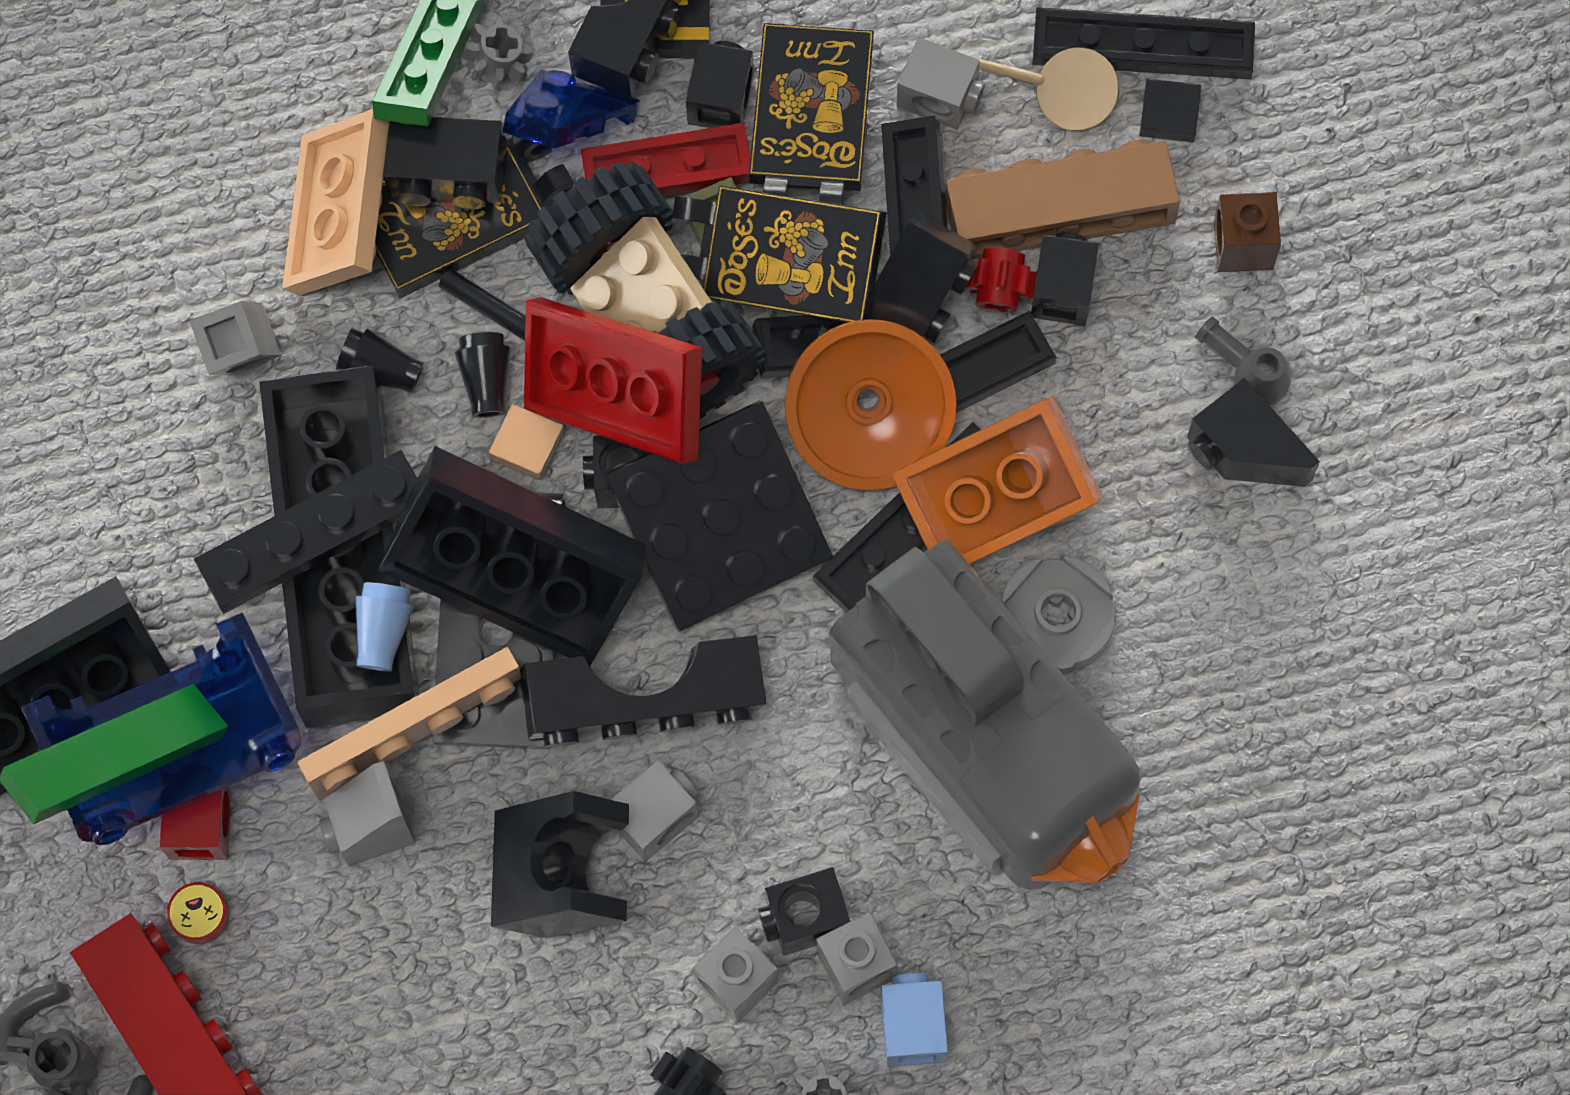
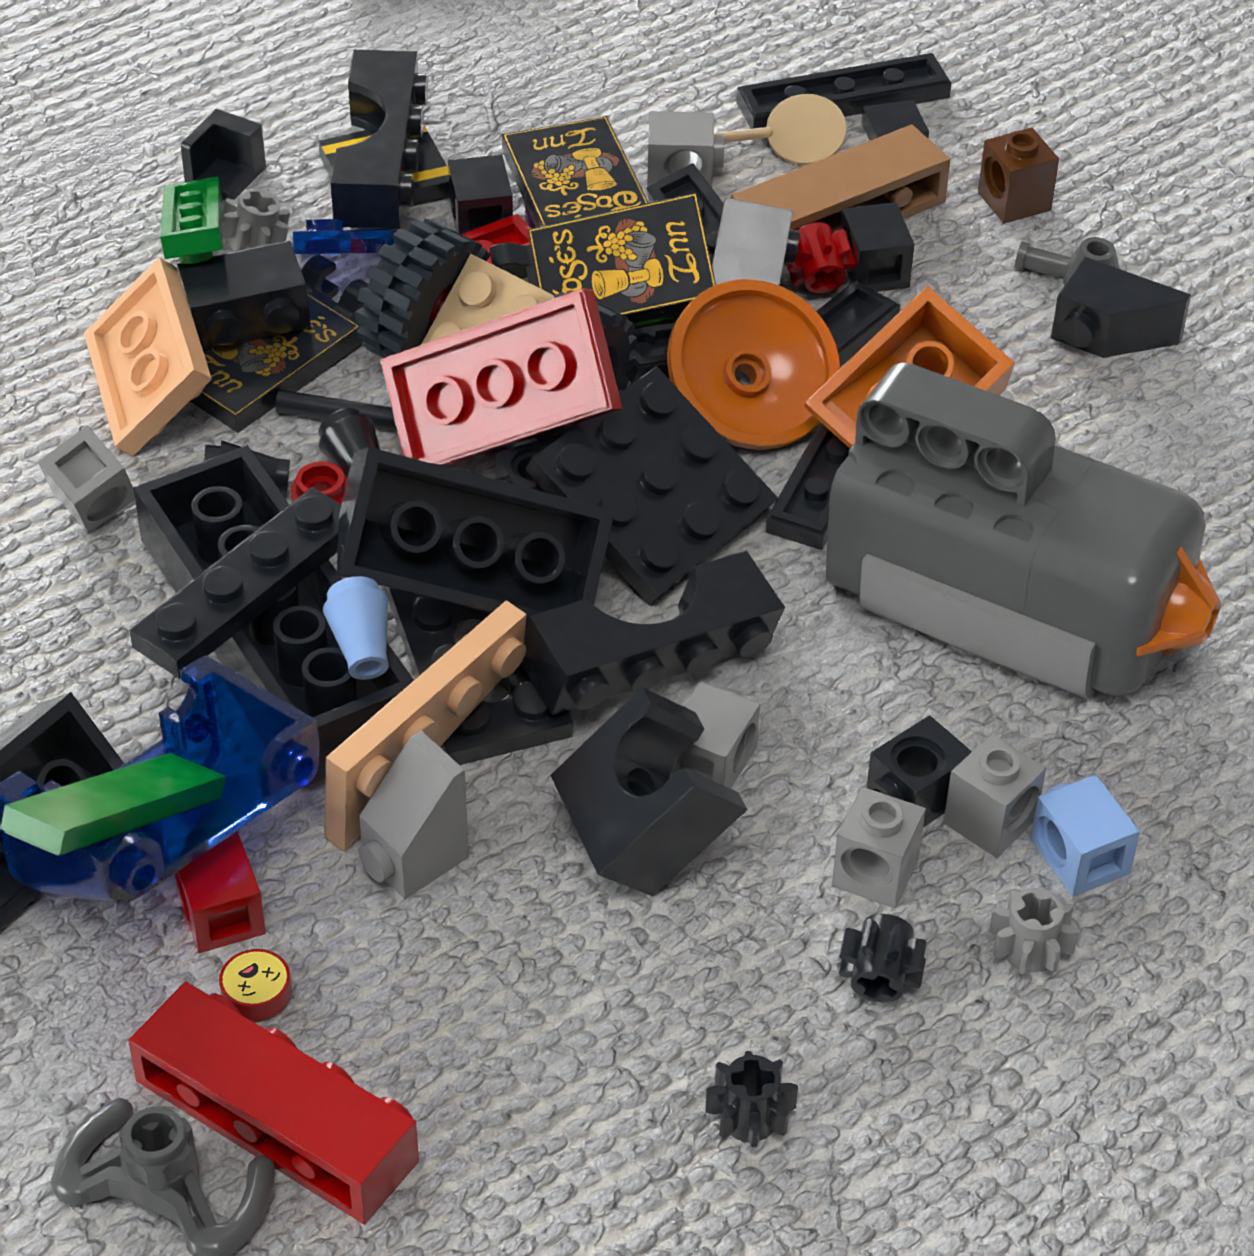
camera: 25 degrees left, 25 degrees down
(436, 390) = (322, 476): none -> red plate

